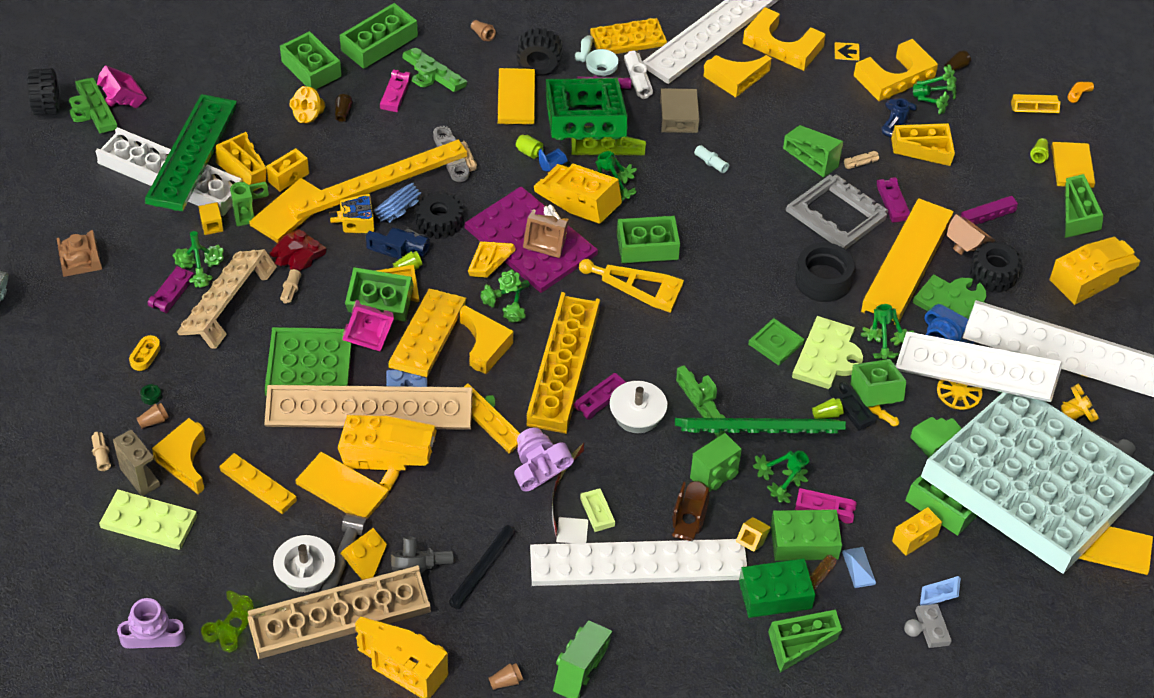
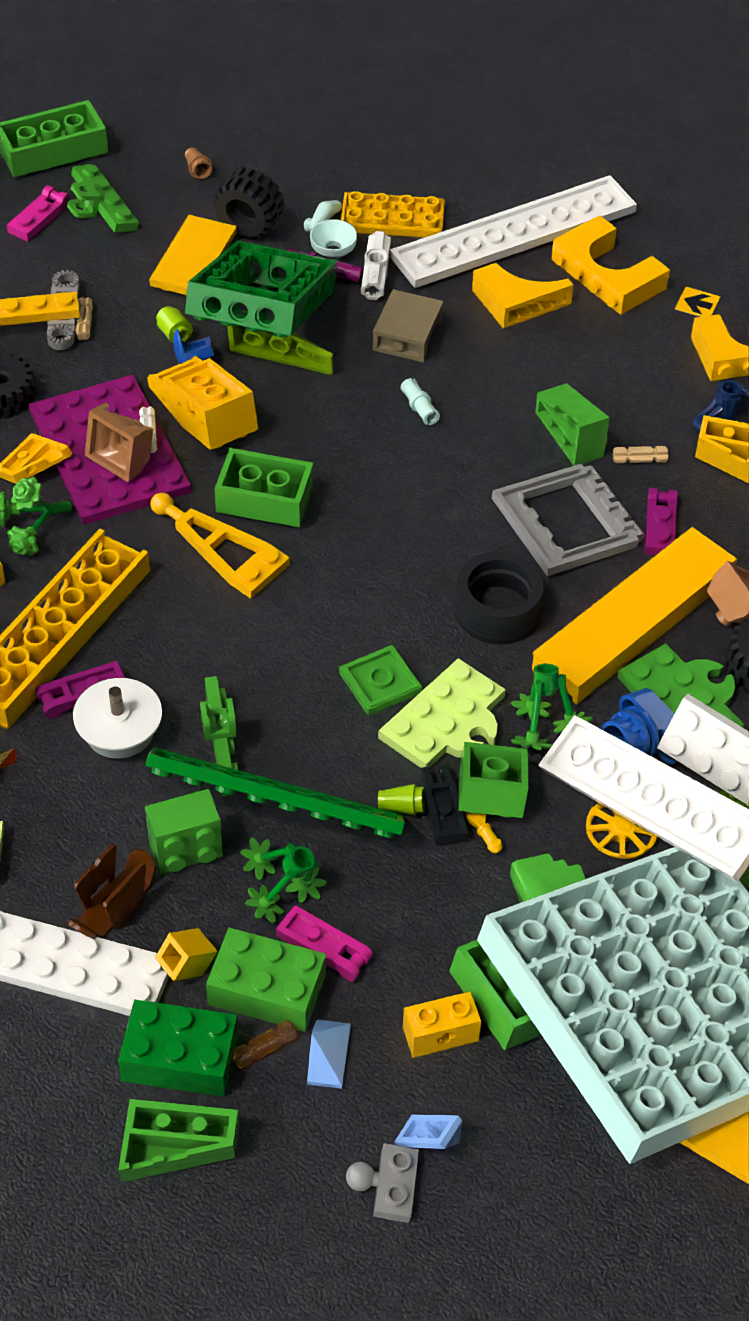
camera: 20 degrees right, 0 degrees up
(607, 161) = (254, 365): plant -> none

